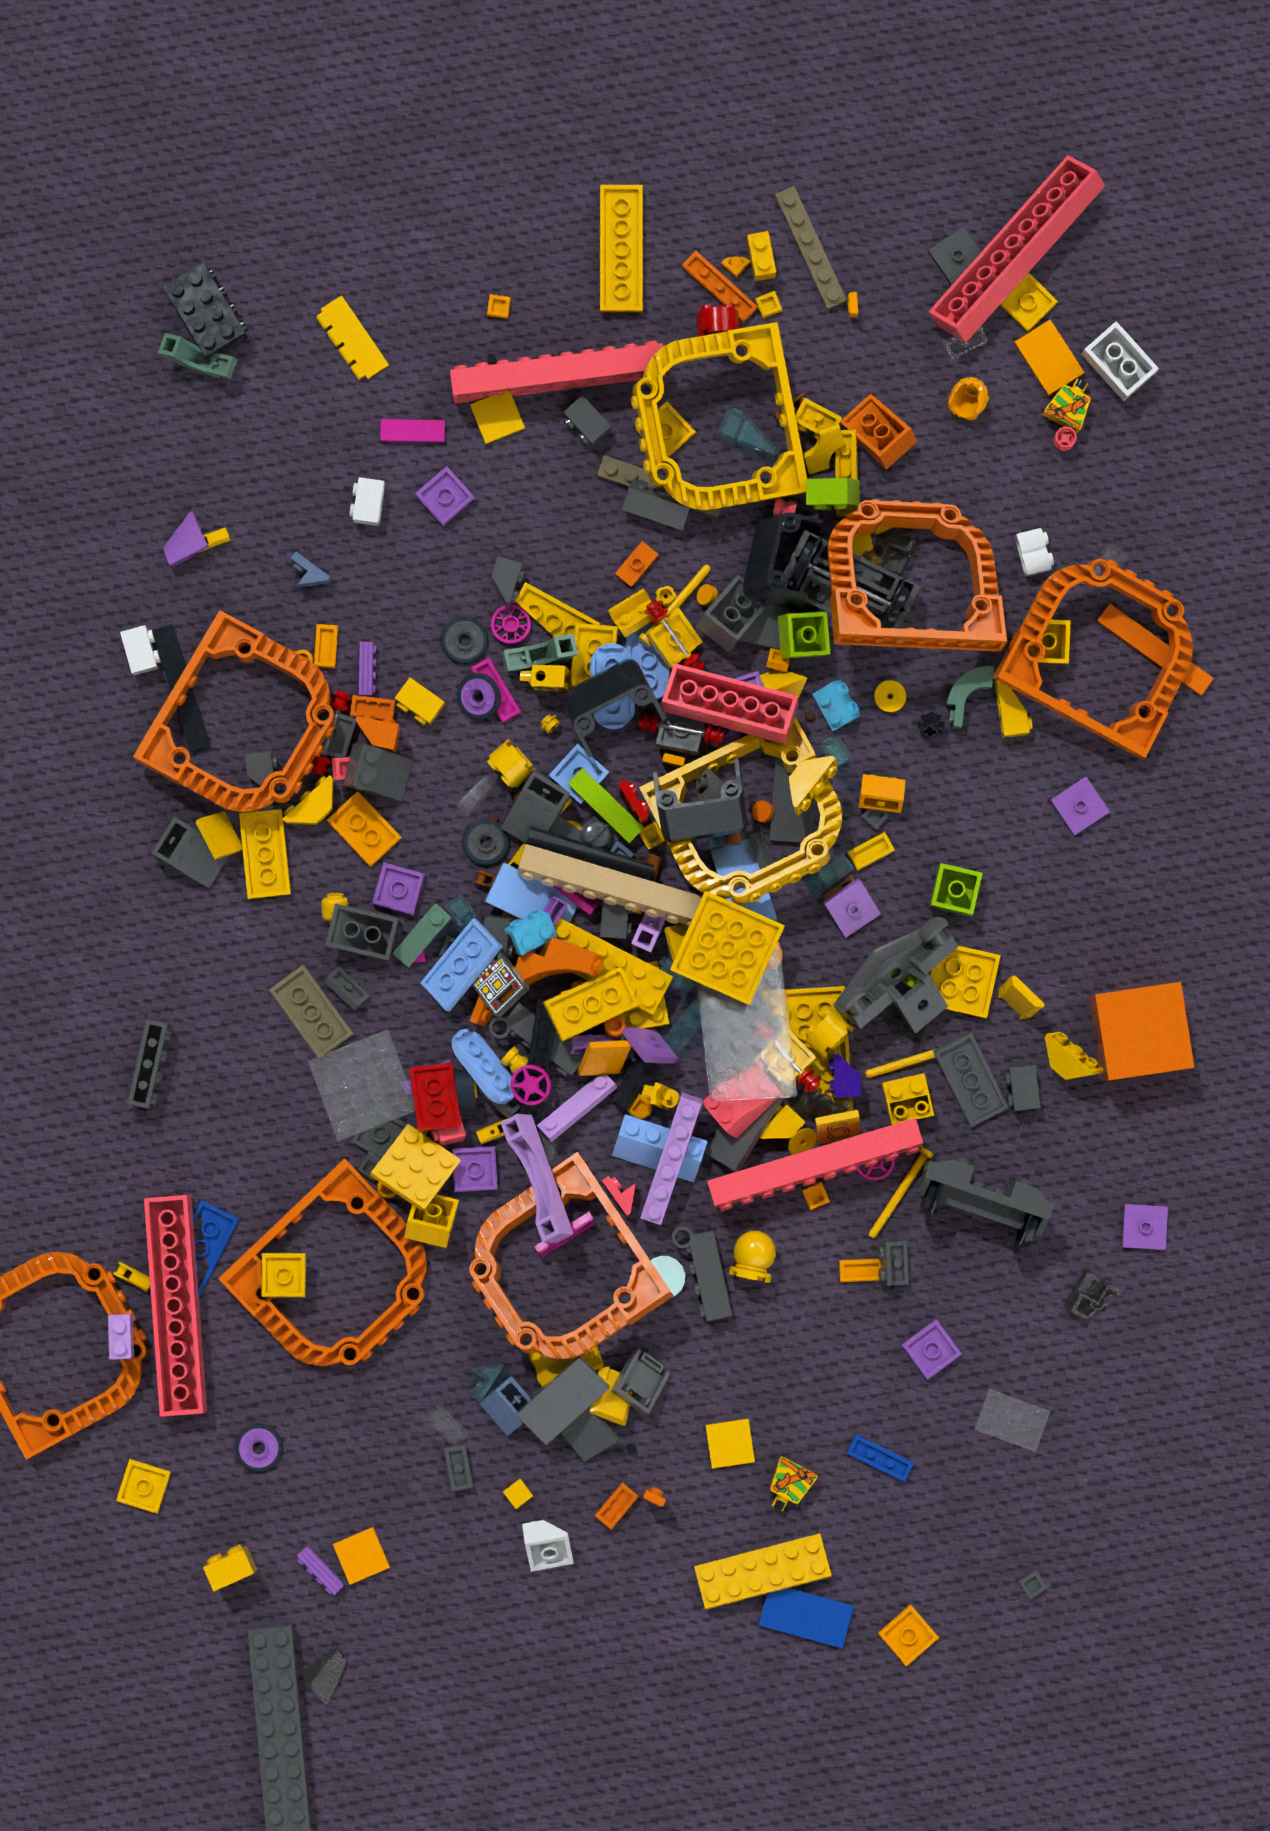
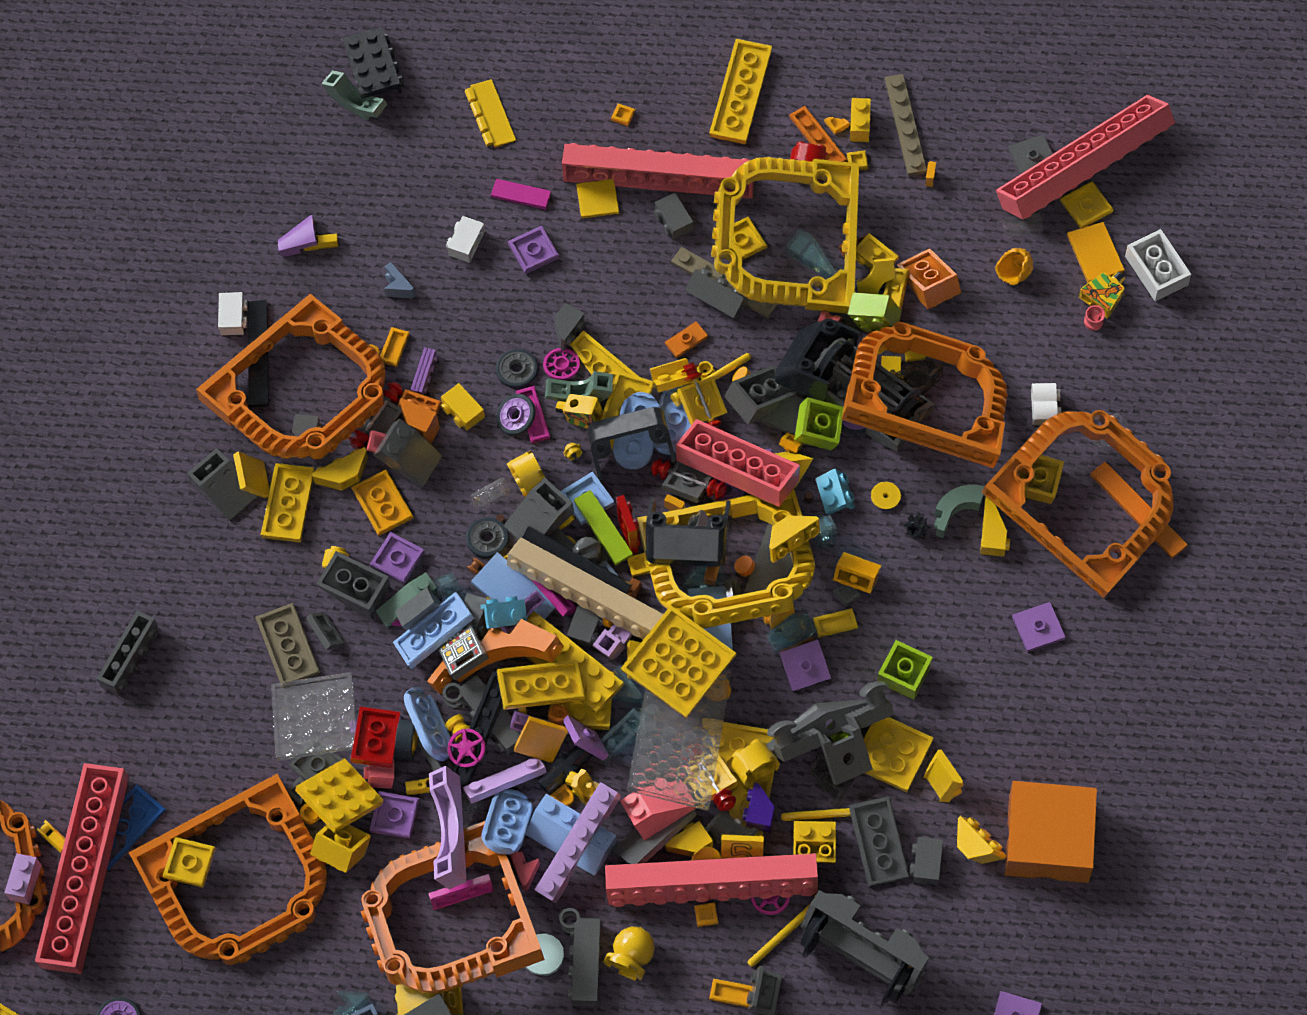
camera: 25 degrees right, 20 degrees down
(438, 946) = (417, 608): none -> dark grey brick
(593, 1153) = (506, 822): none -> light blue tile

